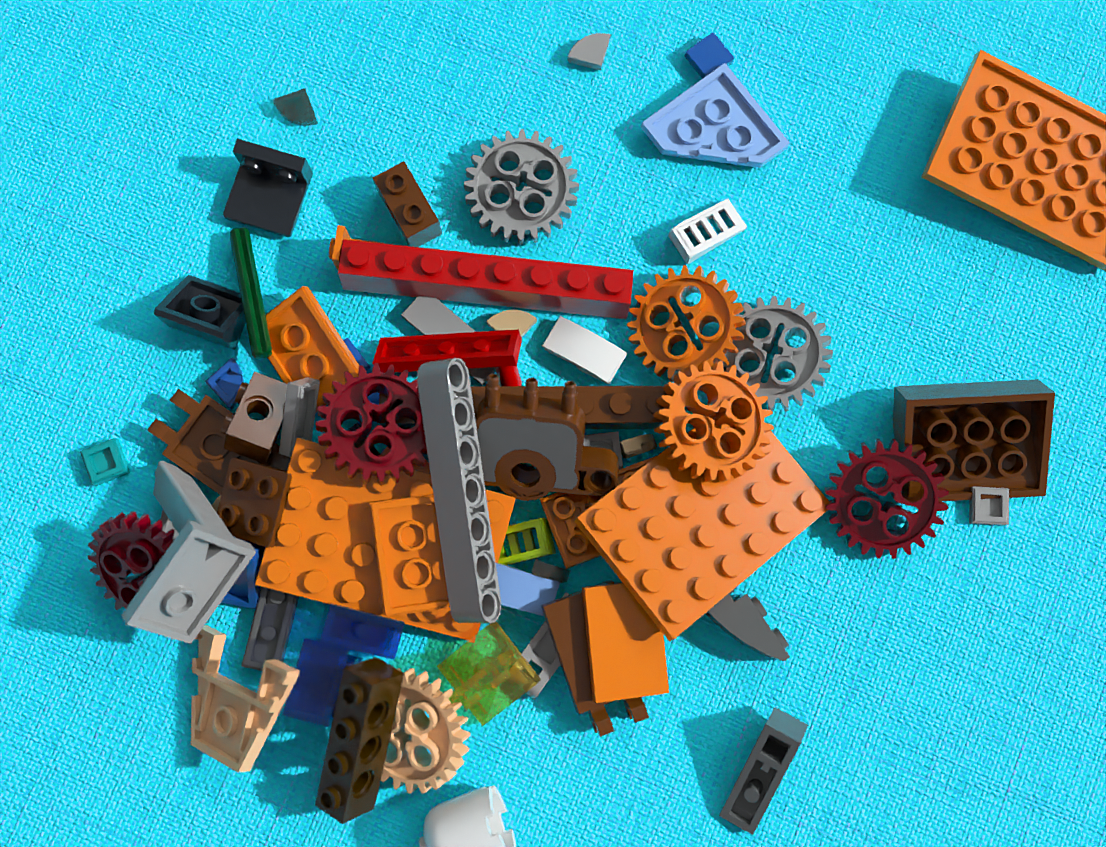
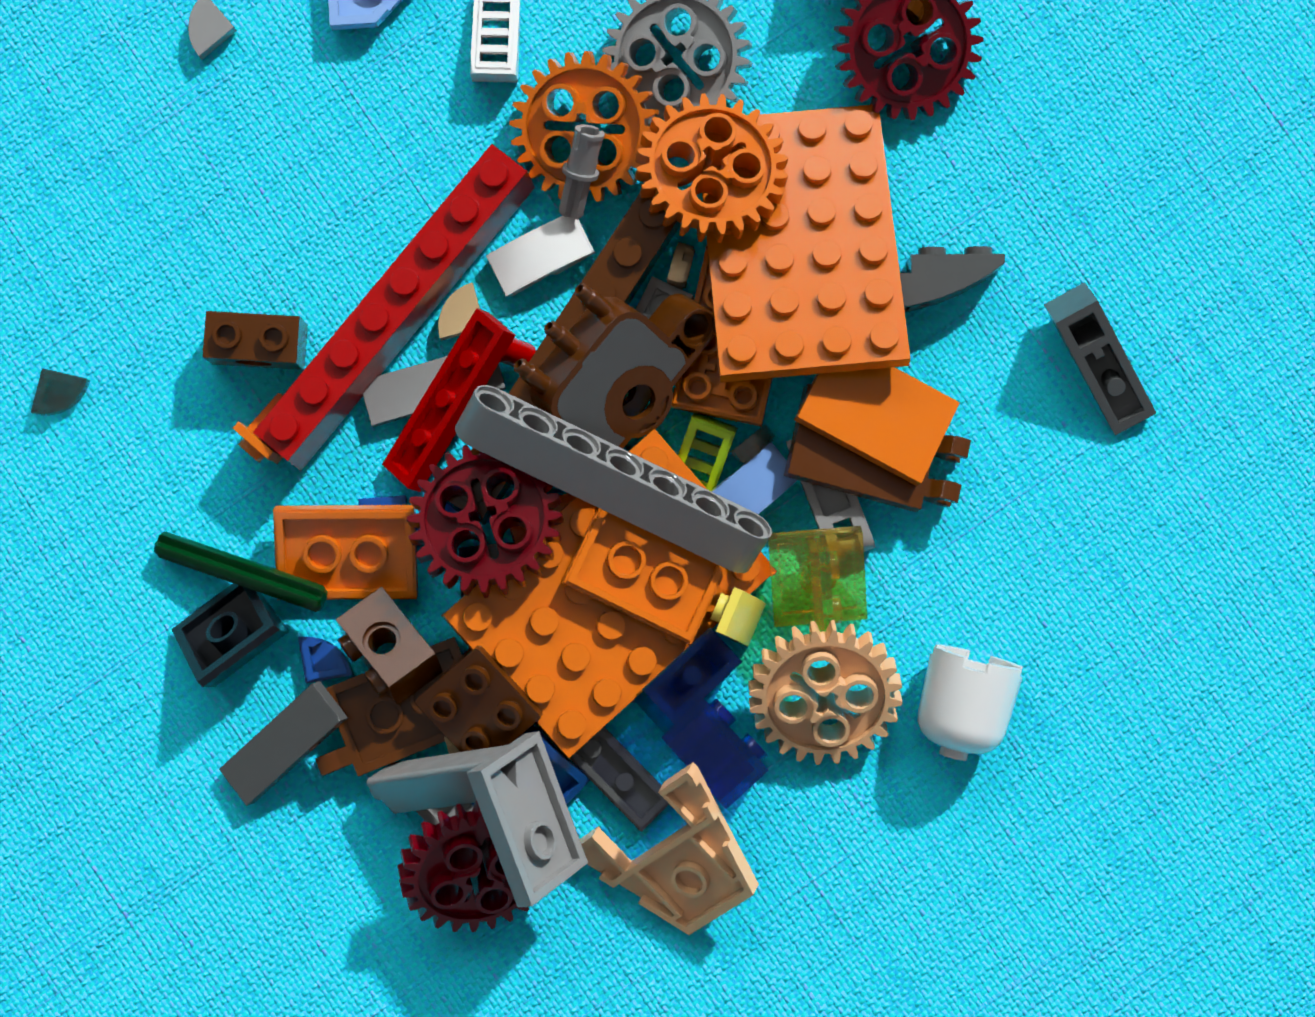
camera: 50 degrees left, 5 degrees up
(105, 462) = (323, 845): teal tile -> none
(153, 391) = (283, 743): none -> dark grey tile
(267, 188) = (134, 482): black bracket -> none
(298, 413) = (414, 602): light grey tile -> none
(359, 739) = (800, 748): dark brown brick -> none
(424, 636) = (738, 615): none -> light yellow slope
(531, 157) = (287, 173): light grey gear -> none
(654, 337) = (580, 169): none -> light grey axle

